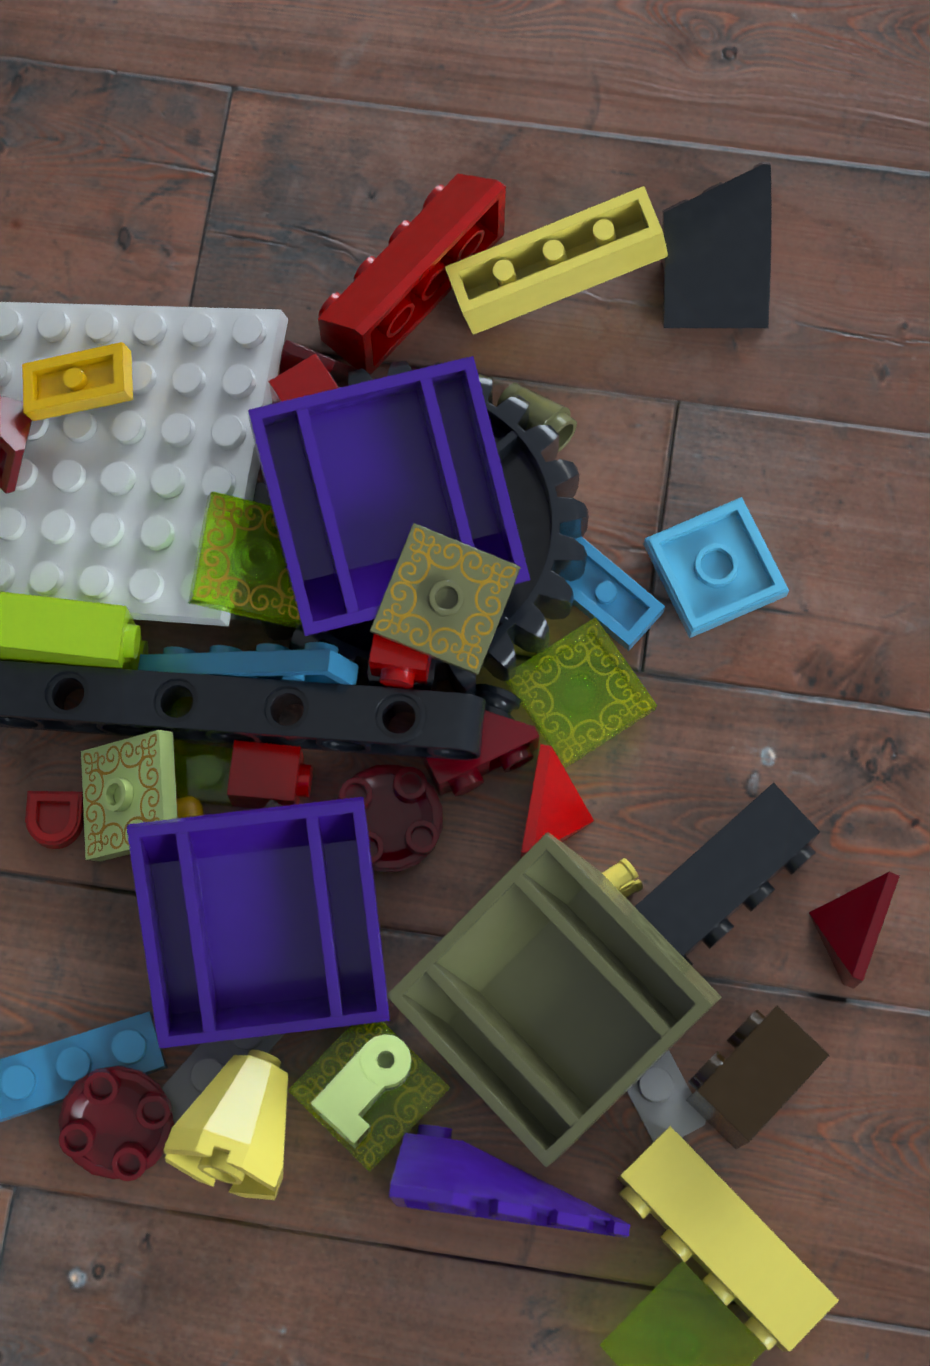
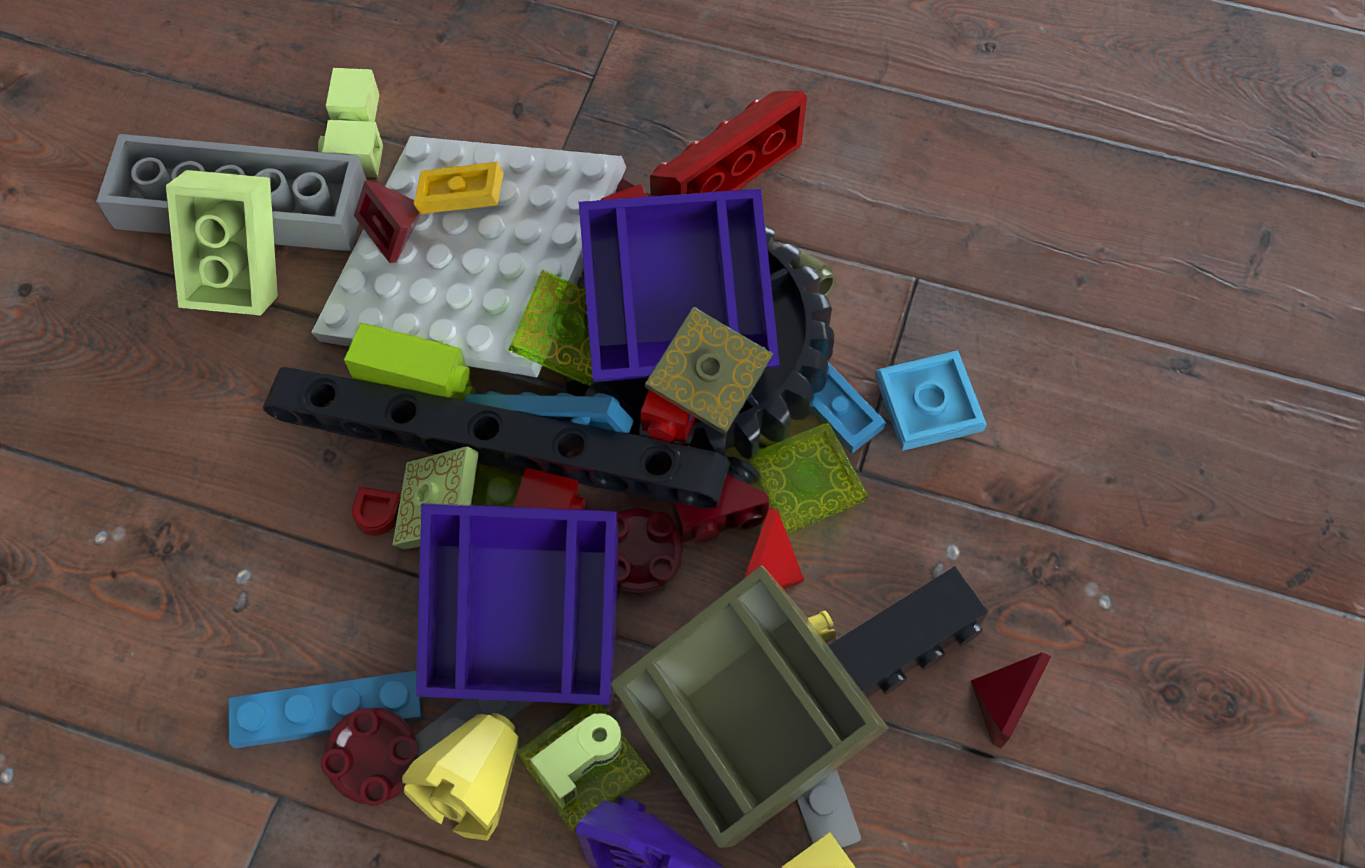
camera: 10 degrees right, 10 degrees down
(557, 260) = (839, 159): light yellow brick -> none
(720, 255) = (964, 176): black slope -> none
(757, 1077) = (909, 801): dark brown brick -> none

